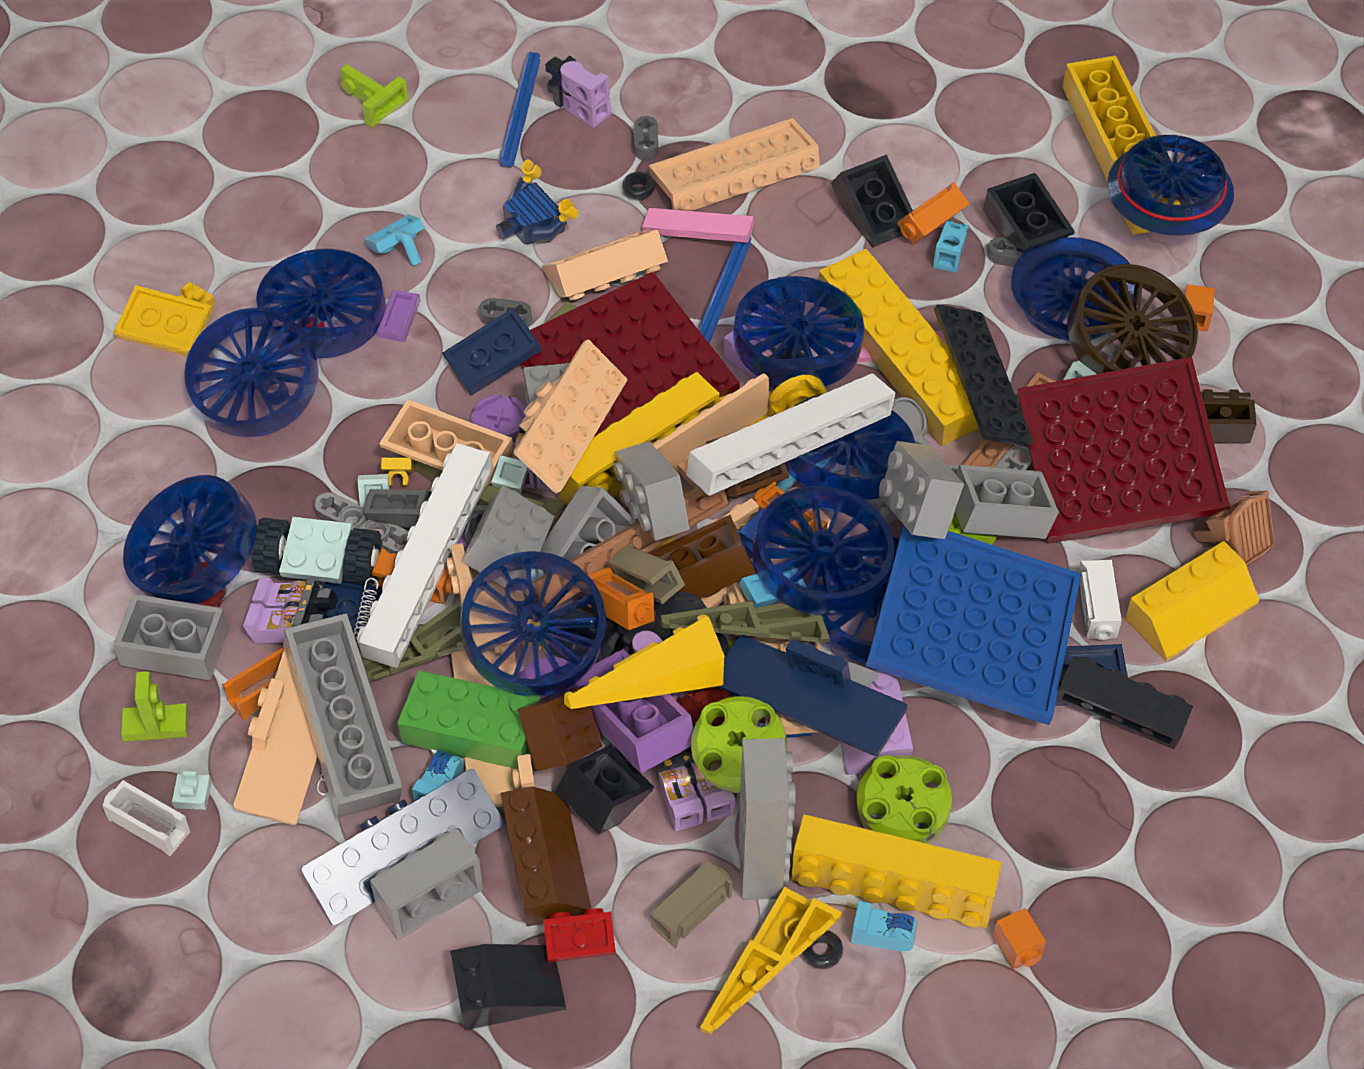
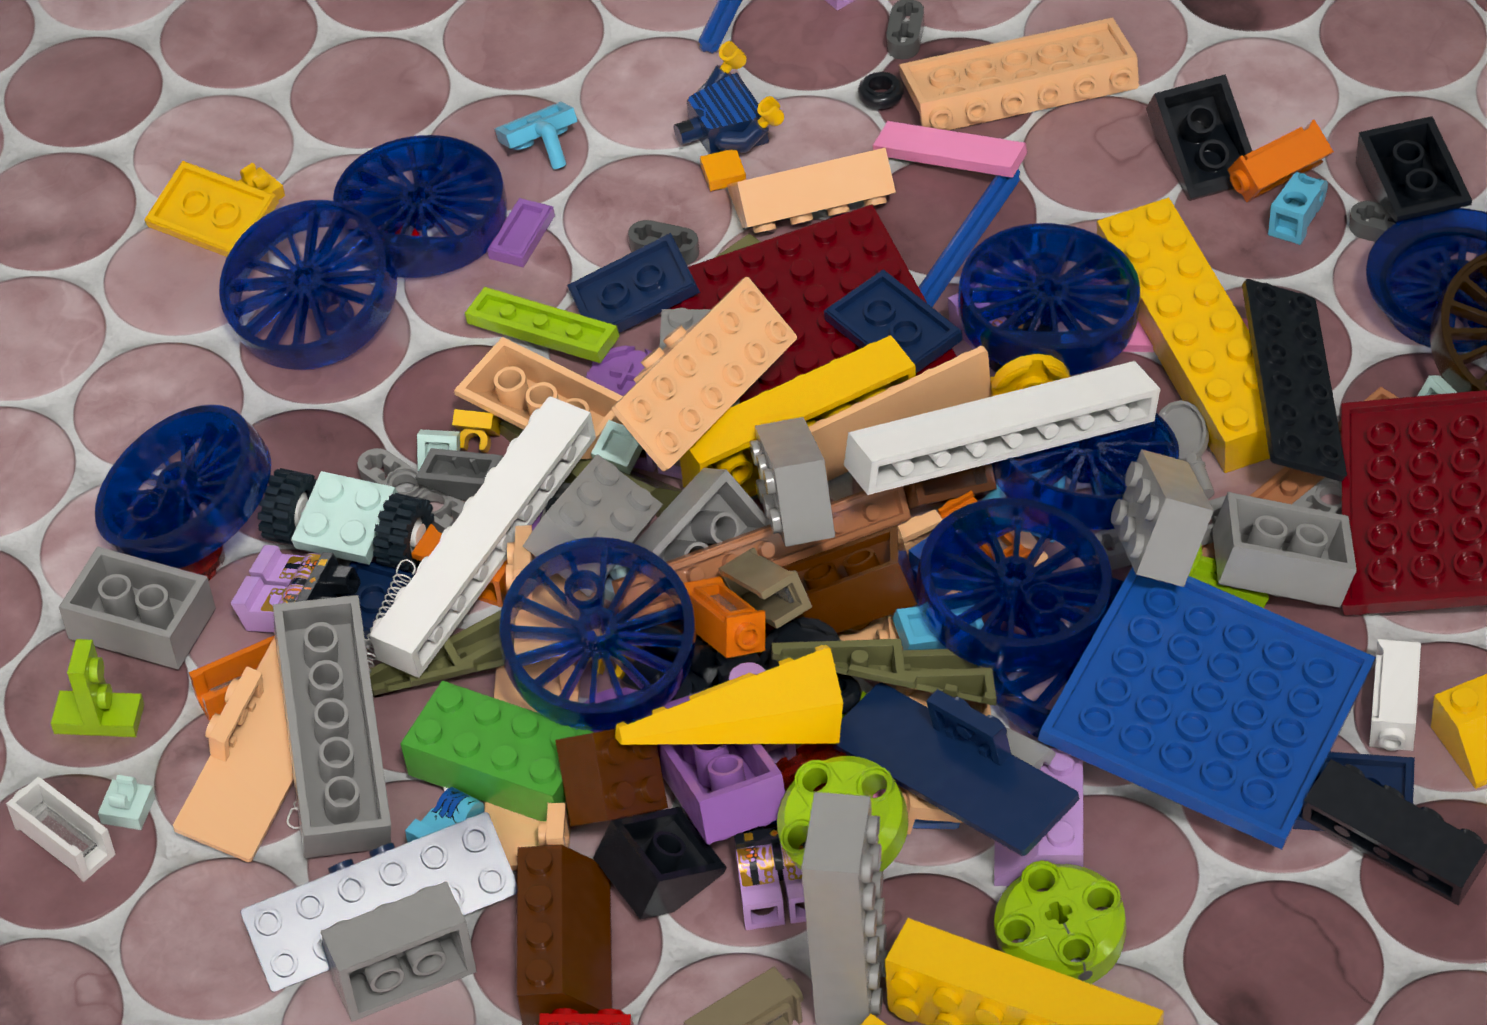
camera: 15 degrees right, 5 degrees down
(430, 385) = (542, 324): none -> lime plate
(536, 254) = (722, 169): none -> light orange tile
(681, 353) = (889, 308): none -> dark blue tile

